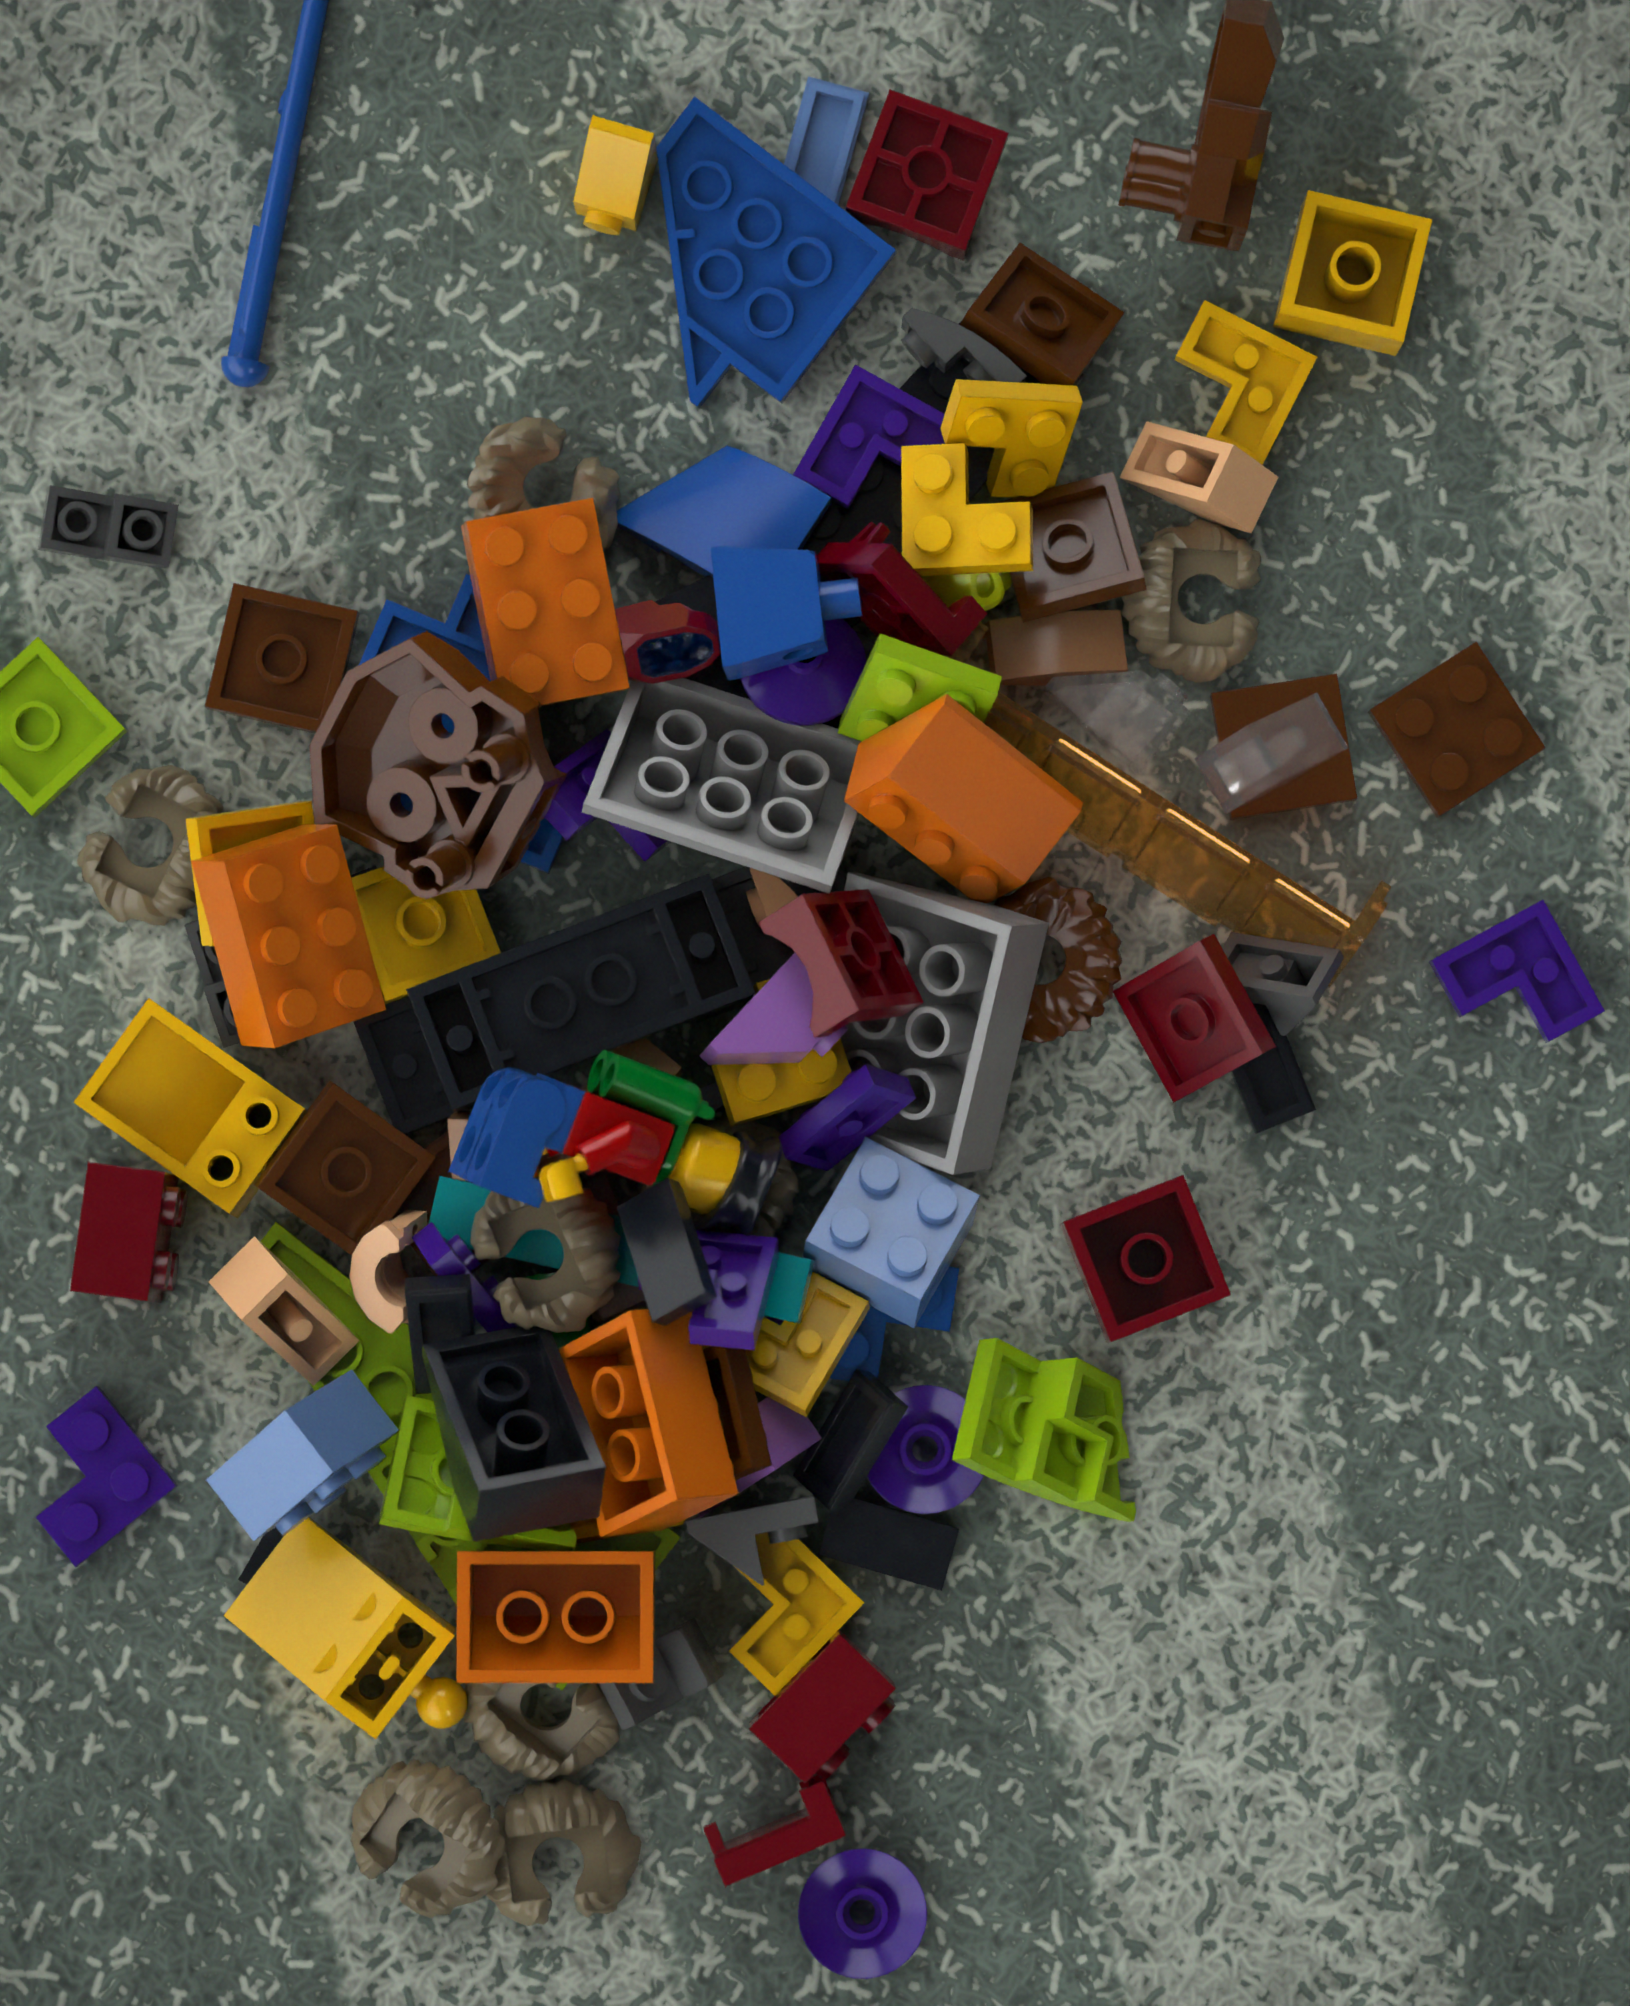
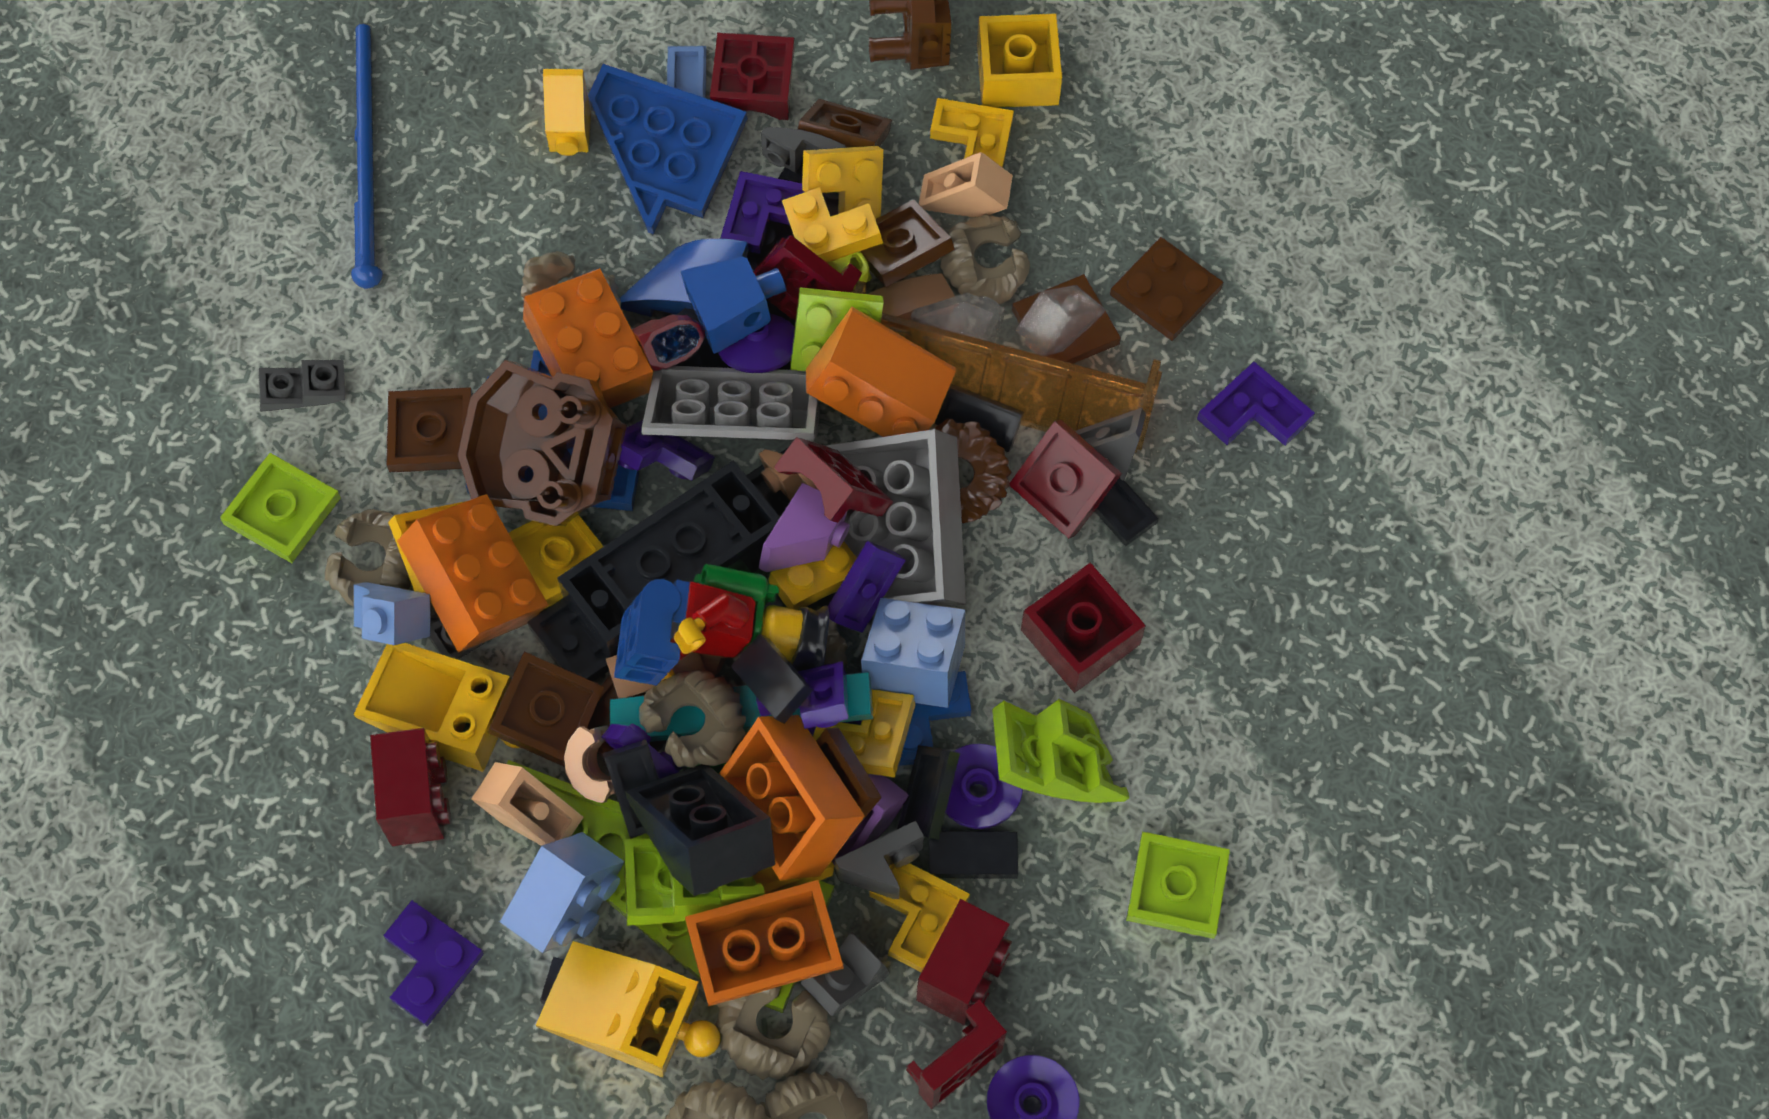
camera: 15 degrees left, 20 degrees down
(159, 962) = (391, 613): none -> medium blue arch
(1096, 864) = (994, 416): none -> black tile
(1158, 1670) = (1178, 885): none -> lime plate

